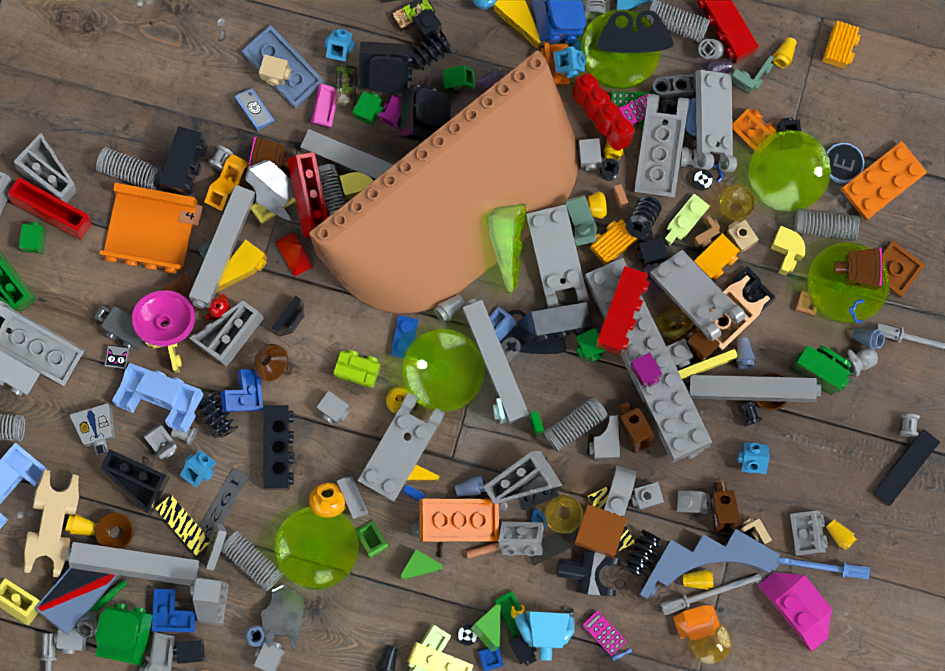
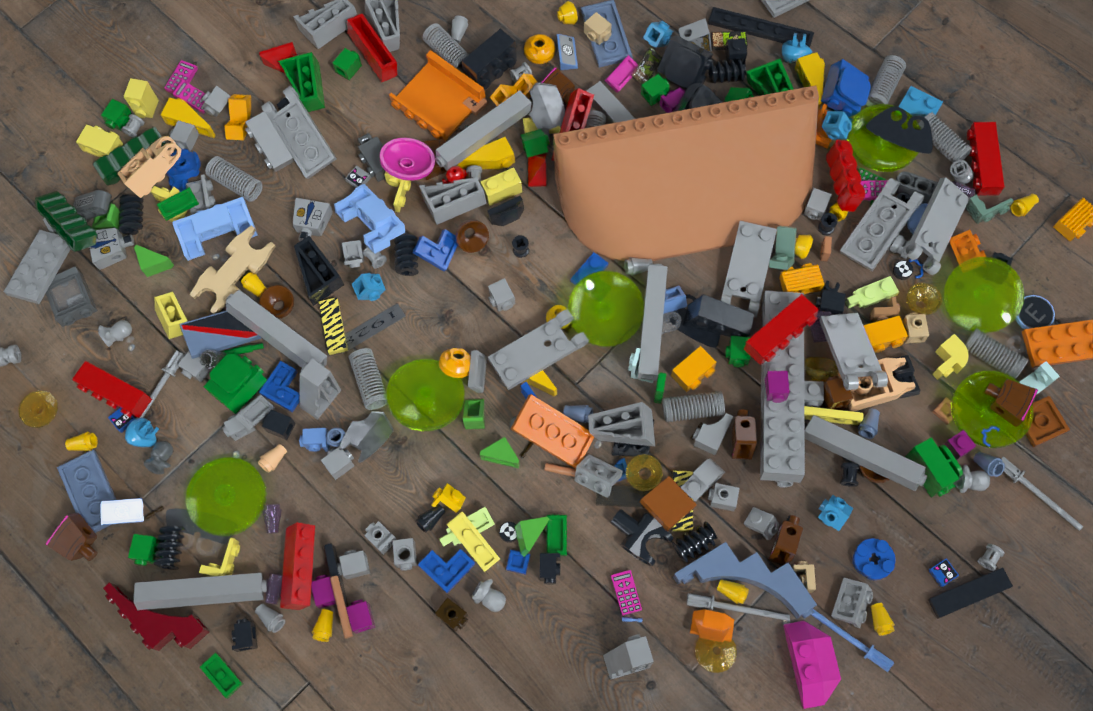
camera: 35 degrees right, 10 degrees down
(126, 138) = (459, 26): none -> light grey cone
(214, 547) = (346, 352): light grey tile -> none
(227, 127) = (542, 54): none -> light orange piece
(232, 66) = (567, 13): none -> yellow cone
(234, 647) = (314, 439): none -> medium blue brick
(236, 295) = (474, 171): none -> light grey bush
(270, 294) = (501, 186): none -> light yellow brick
(271, 415) = (432, 330): black brick -> none
(278, 229) = (535, 142): none -> green brick
(319, 343) = (523, 243): none -> black bush
(357, 369) = (537, 275): lime brick -> none
(381, 27) = (697, 34): none -> light grey torso
(394, 633) = (449, 496): none -> yellow bracket
(487, 46) = (769, 78): none -> green wedge
(505, 230) = (715, 225): clear neon green wedge -> none
(545, 629) = (576, 558): medium azure torso -> none
(556, 386) = (694, 369): none -> light orange brick
(643, 216) = (837, 270): black piece -> none
(820, 481) = (882, 550): none -> blue plate
(834, 334) = (960, 445): none -> magenta brick
(874, 461) = (943, 572): none -> tile
(876, 231) = (1041, 377): none -> light aqua bracket

